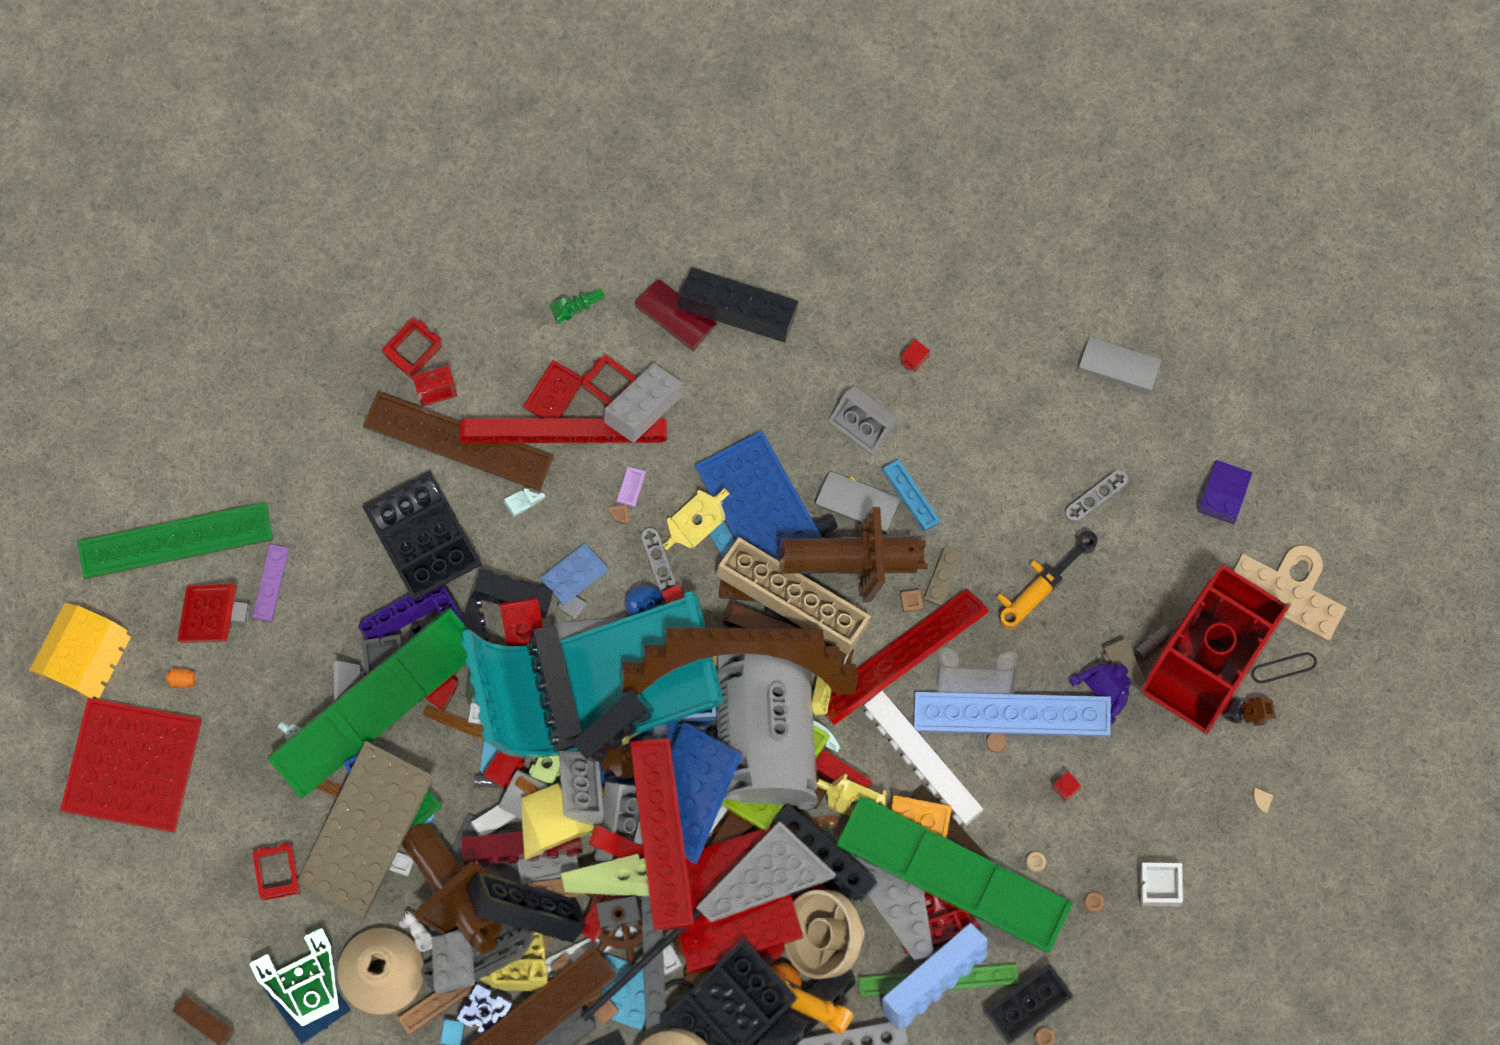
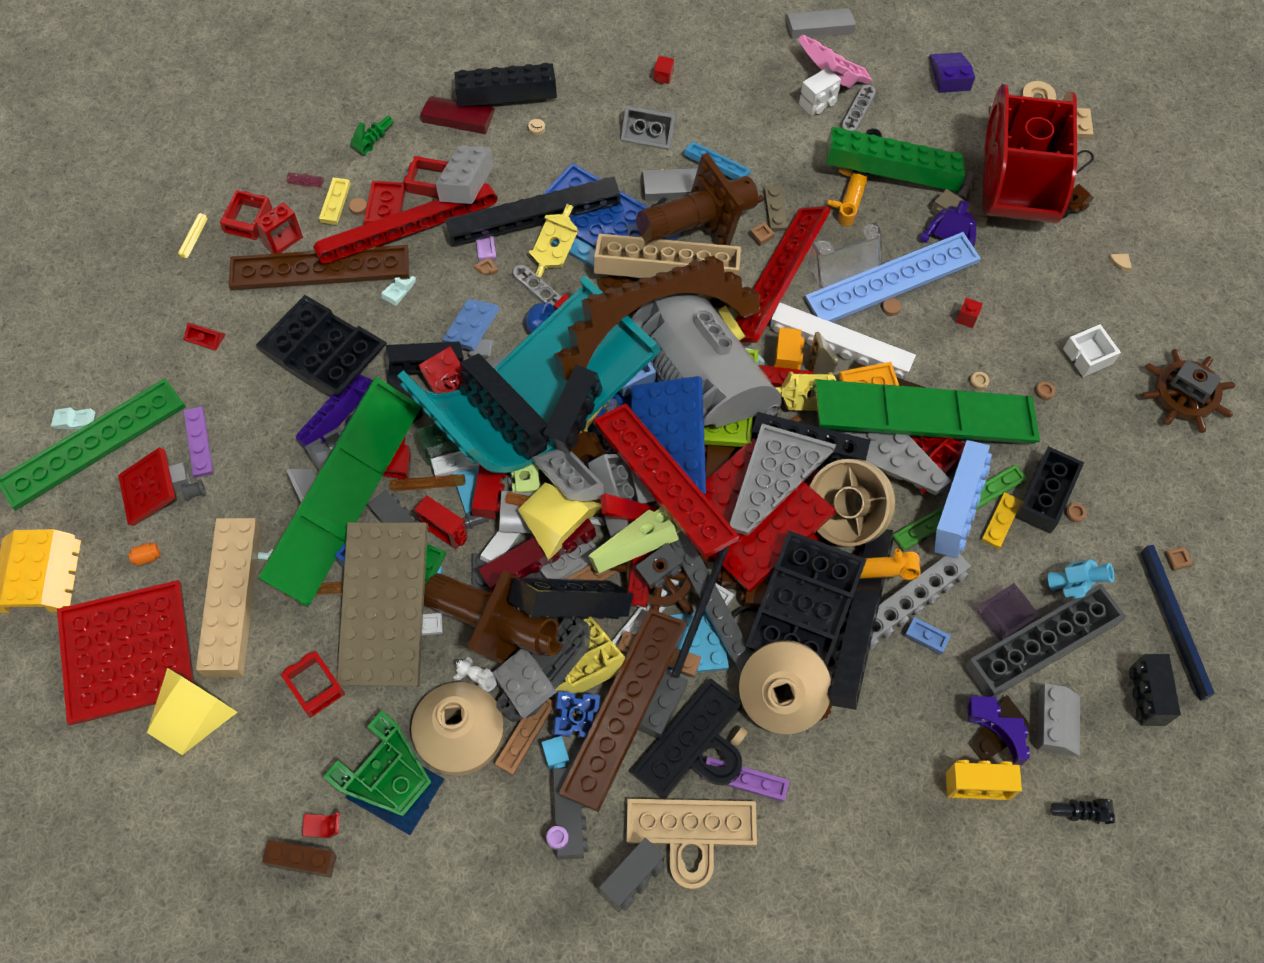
camera: 30 degrees left, 10 degrees down
(160, 848) = (185, 714): none -> light yellow wedge
(167, 506) = (71, 419): none -> light aqua slope
(232, 1001) = (320, 825): none -> red bracket
(238, 756) = (229, 598): none -> tan brick
(247, 633) = (193, 490): none -> dark grey bush
(319, 468) = (203, 336): none -> red slope
(352, 347) = (192, 235): none -> light yellow axle
(413, 745) = (387, 509): none -> dark grey brick
(452, 773) = (442, 522): none -> red window
(487, 329) = (305, 179): none -> clear pink pin
(505, 369) = (334, 201): none -> light yellow plate
(526, 384) = (358, 206): none -> medium nougat tile
(692, 475) = (532, 211): none -> black brick
(748, 367) = (536, 127): none -> tan tile
(859, 748) = (789, 348): none -> light orange brick
(891, 769) = (821, 356): none -> dark tan slope
(968, 1012) = (1001, 520): none -> yellow plate
(1061, 461) = (819, 91): none -> white piece
(1090, 581) = (895, 159): none -> green brick
(1093, 431) = (825, 57): none -> bright pink slope
(1233, 969) = (1192, 383): none -> reddish brown brick

